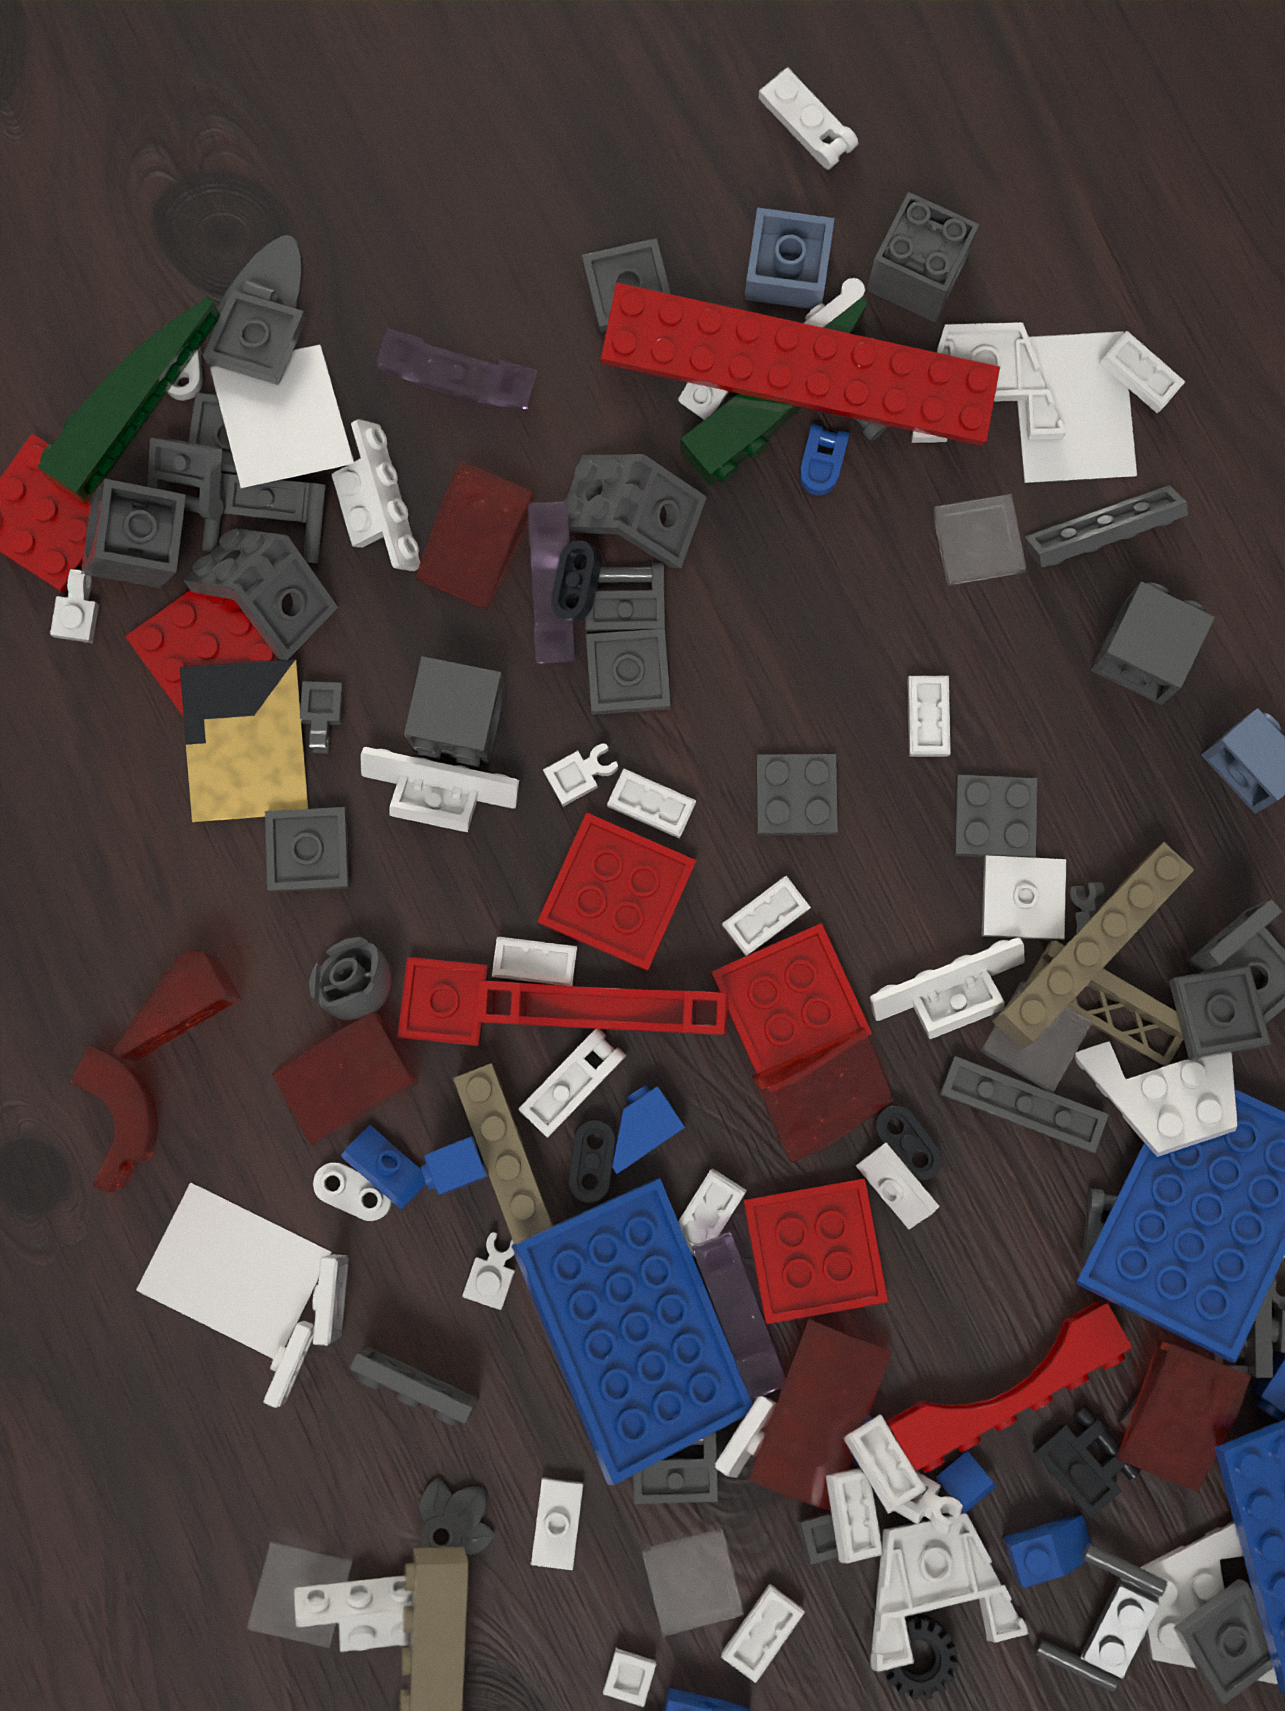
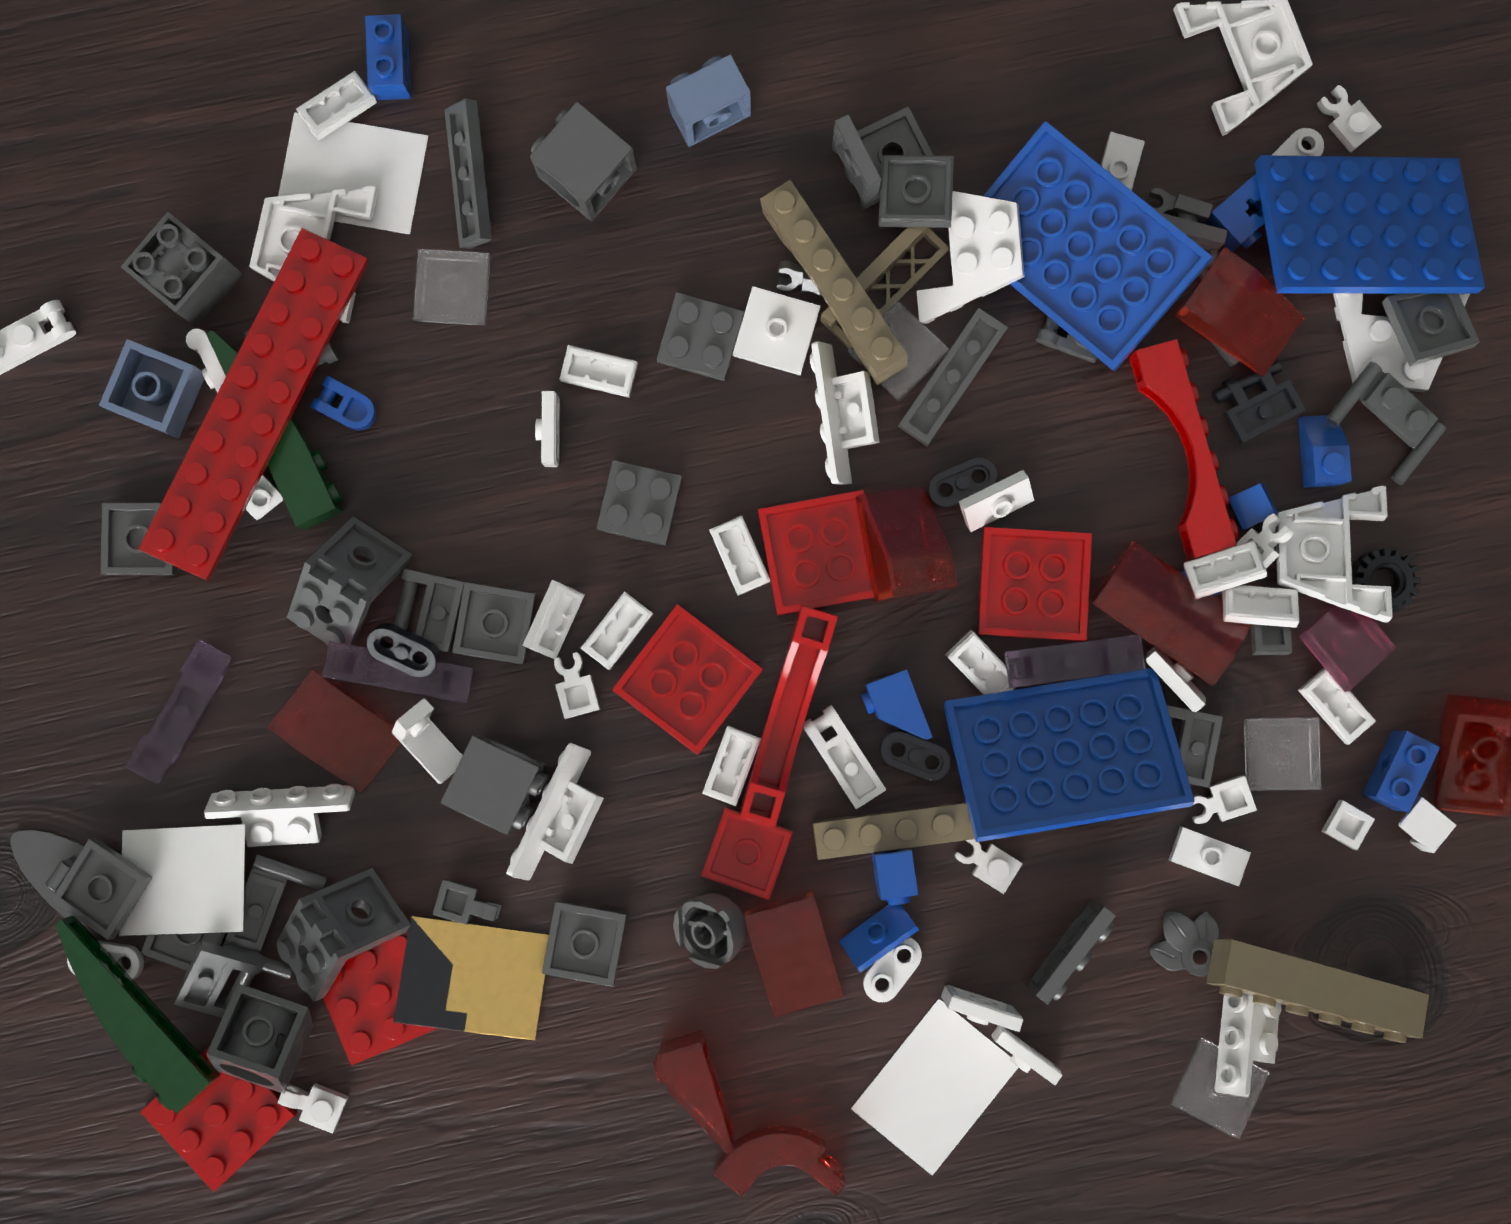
camera: 75 degrees left, 5 degrees up
(485, 629) = (427, 742): none -> white bracket
(626, 1529) = (1228, 799): none -> white plate
(647, 732) = (553, 619): none -> white plate
(834, 1629) = (1347, 645): none -> clear pink tile
(851, 678) = (548, 429): none -> white plate
(1209, 412) = (388, 57): none -> blue brick

